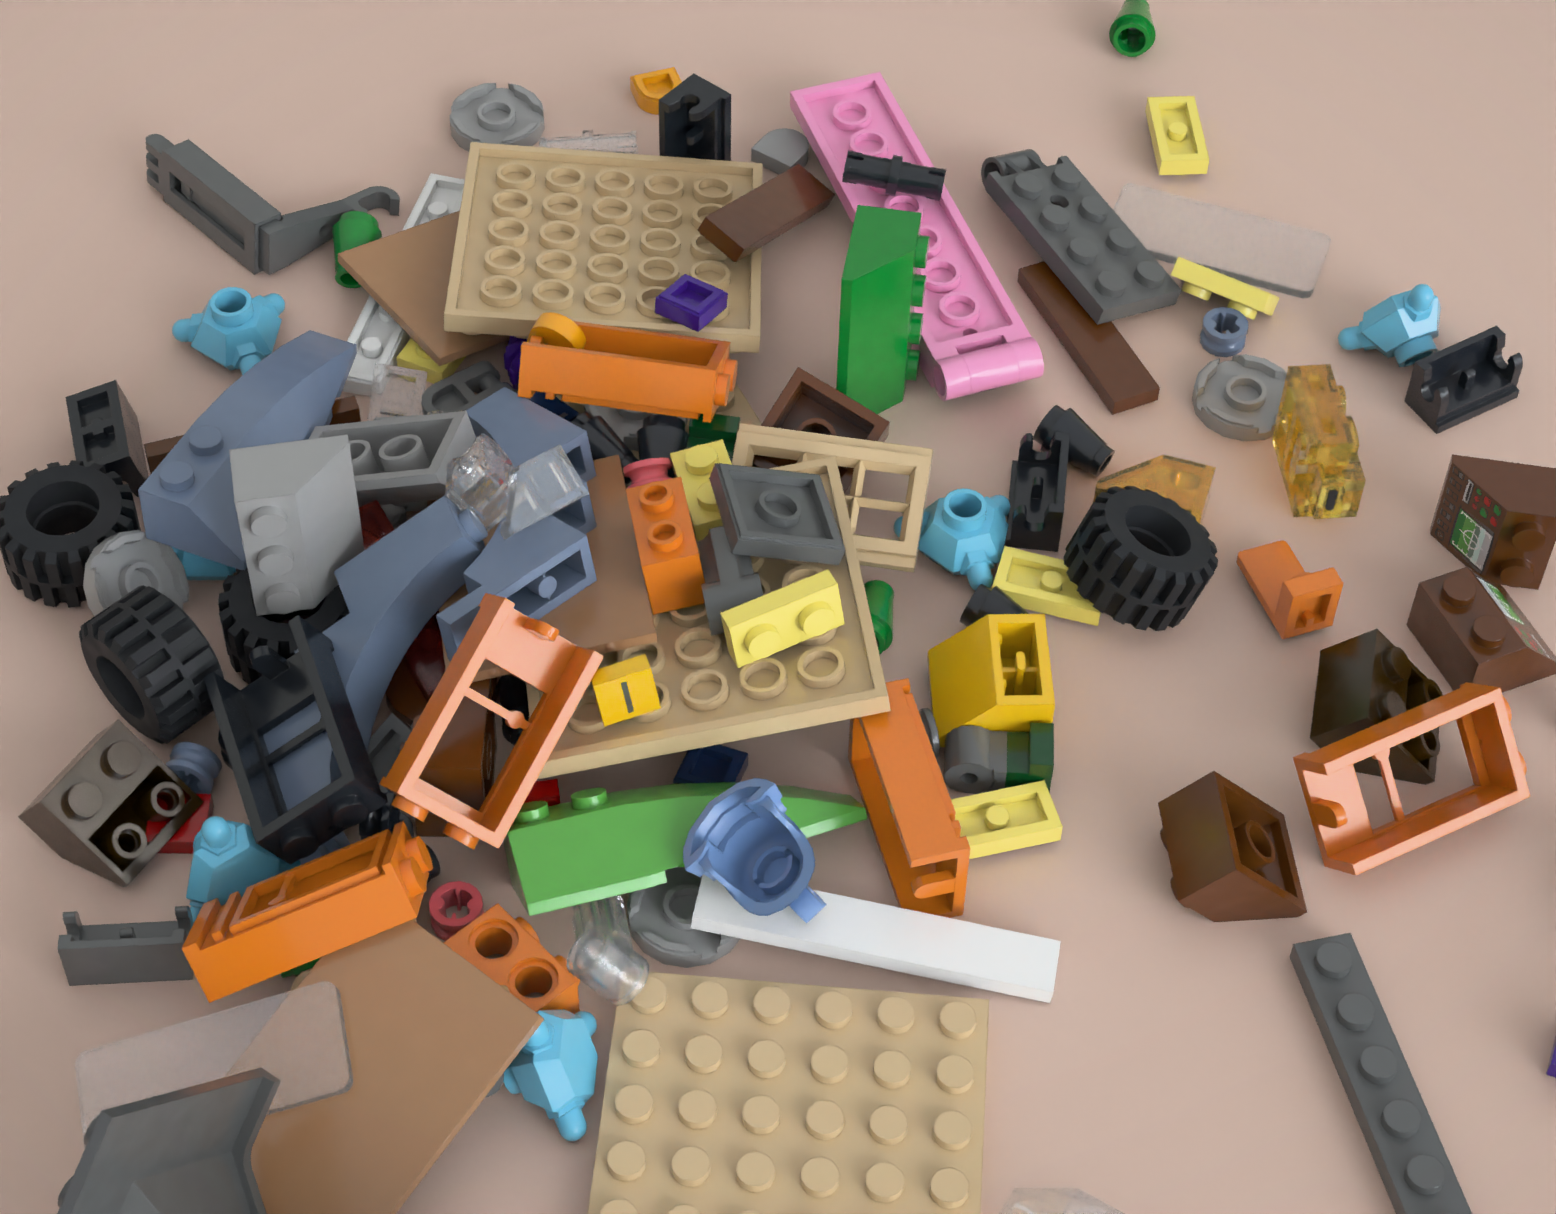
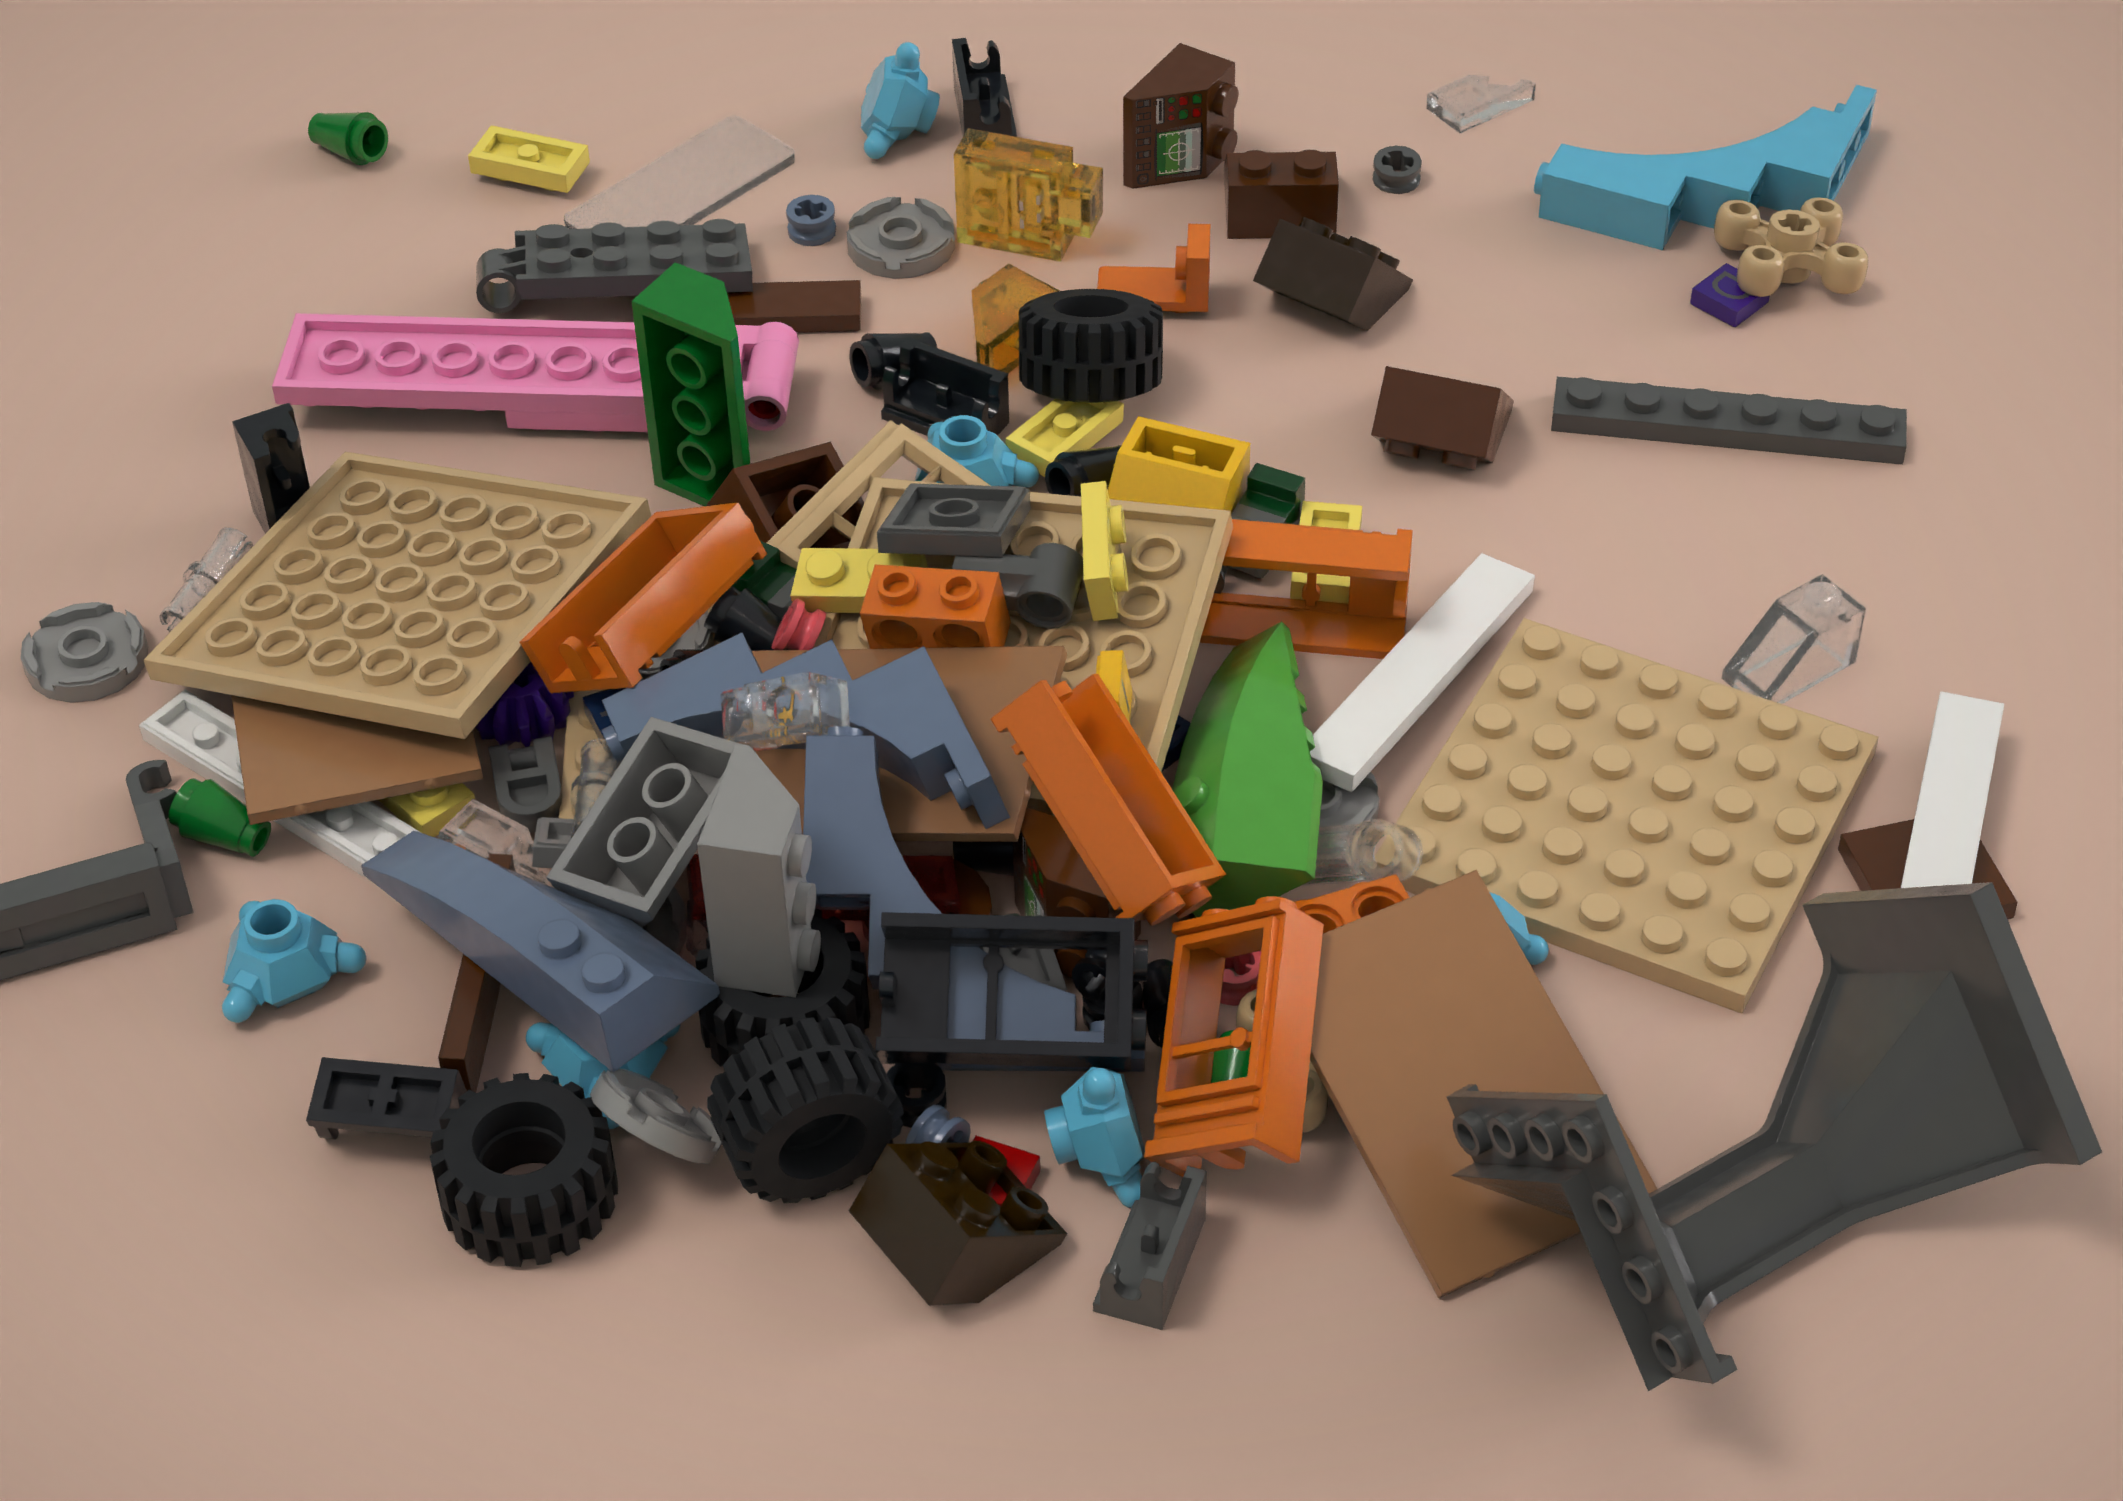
camera: 65 degrees left, 5 degrees down
(289, 1035) = (1373, 1194): clear piece -> none
(540, 490) = (849, 655): clear tile -> none
(558, 331) = (568, 619): light orange tile -> none
(652, 86) = (146, 509): light orange tile -> none
(691, 302) = (569, 529): dark purple tile -> none
(754, 851) = (1338, 678): medium blue helmet -> none
(765, 213) = (449, 455): reddish brown tile -> none
(781, 150) = (326, 438): light grey tile -> none
(894, 175) = (481, 338): black pin -> none
(1243, 297) = (780, 188): light yellow plate -> none
(1338, 804) = (1434, 250): orange door -> none

